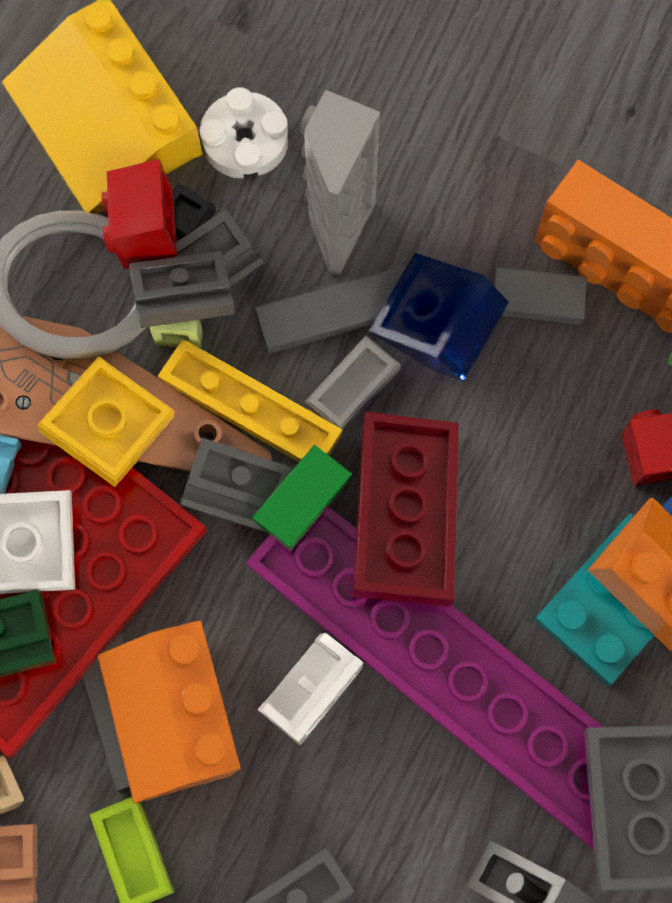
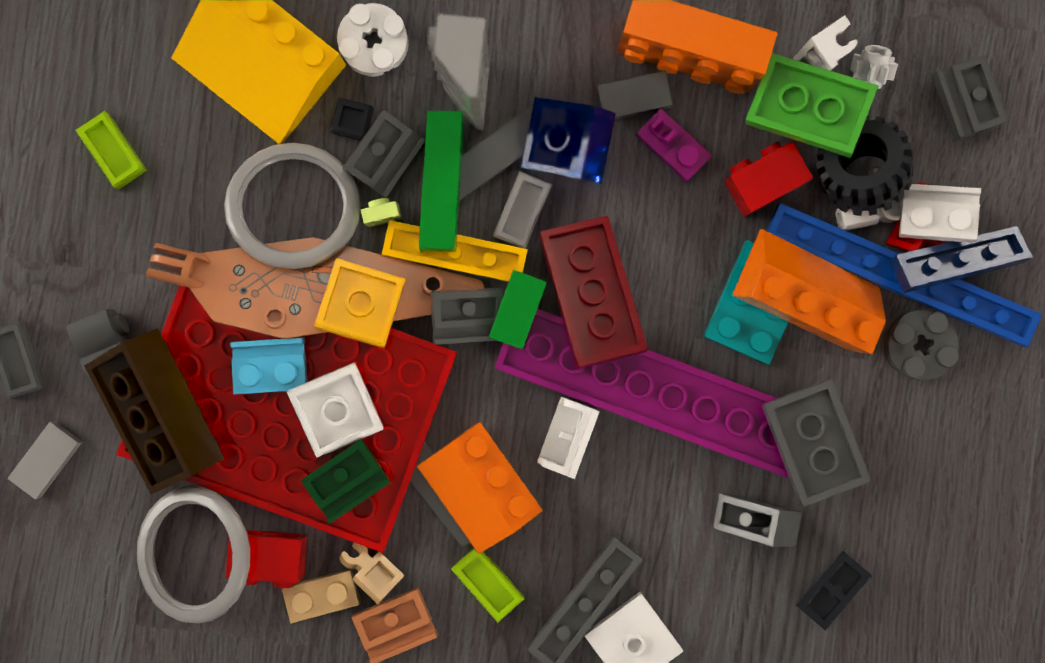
camera: 20 degrees left, 15 degrees up
(139, 214) = (322, 137): red brick -> none
(181, 289) = (375, 186): dark grey plate -> none
(263, 315) = (441, 181): none -> green tile
(570, 369) = (673, 145): none -> magenta plate

